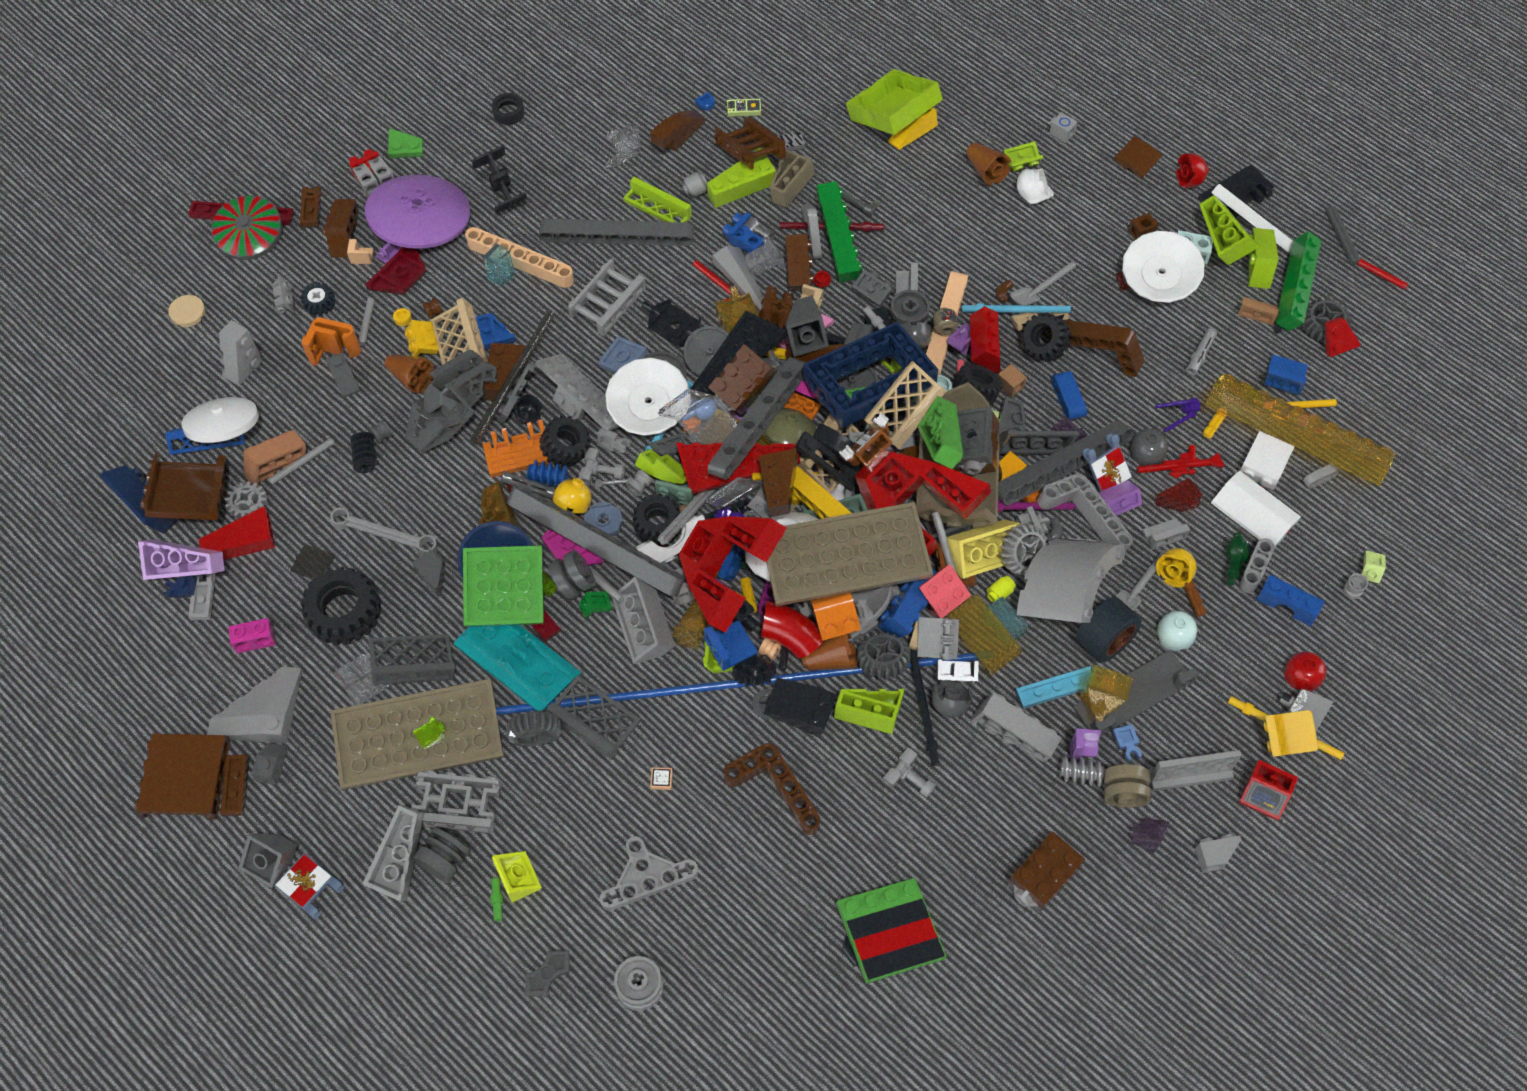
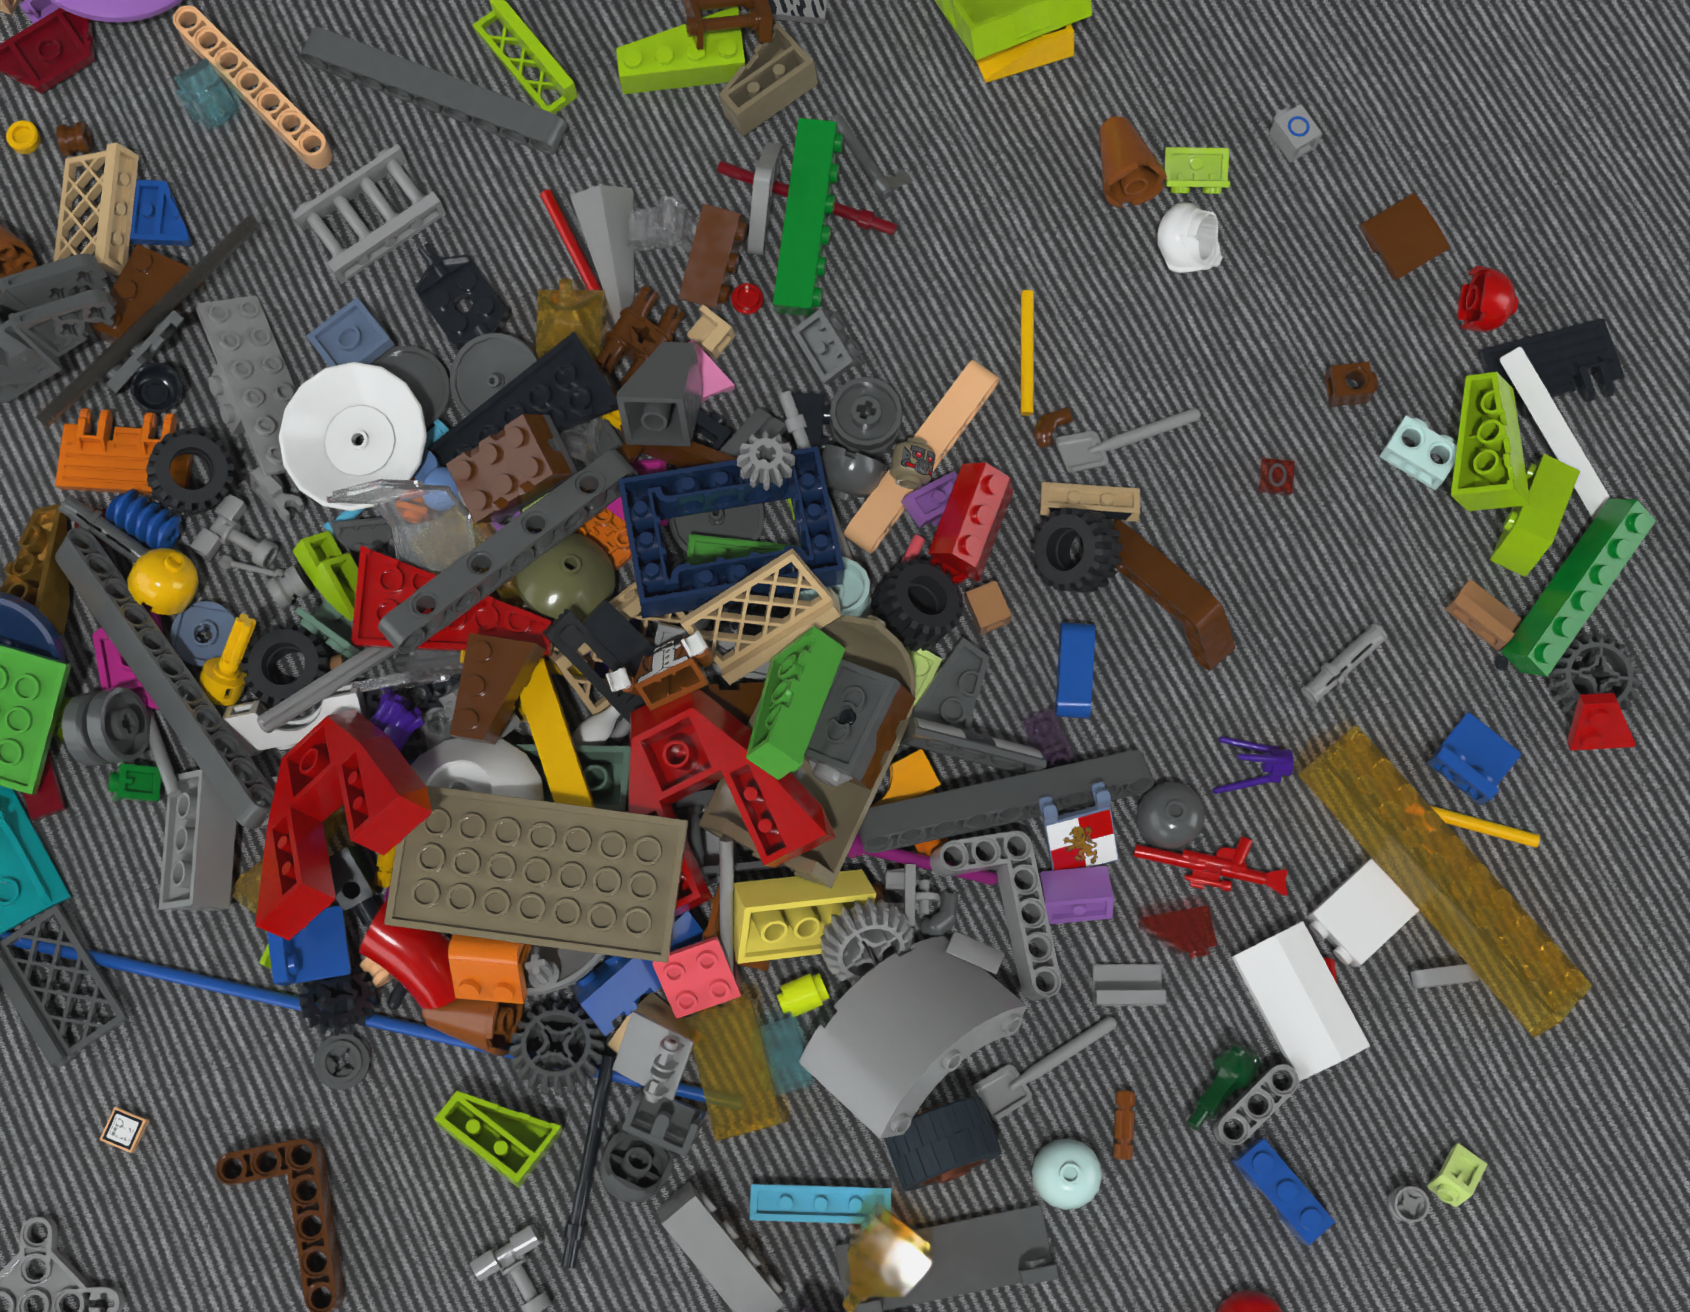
camera: 20 degrees right, 15 degrees up
(421, 338) = (38, 190): yellow bracket -> none
(624, 531) = (225, 671): none -> yellow piece
(695, 184) = (601, 39): light grey head -> none
(744, 232) = (650, 159): blue hips -> none
(800, 705) = (386, 1088): black slope -> none
(876, 331) = (765, 460): none -> light grey gear
(907, 279) = (890, 353): light grey panel -> none
(976, 262) = (1027, 352): none -> yellow bar
(1018, 308) = (996, 448): medium azure bar -> none
(1165, 253) = (1349, 447): white dish -> none
(1176, 567) = (1117, 1061): yellow cylinder -> none
(1214, 424) = (1300, 813): yellow axle -> none

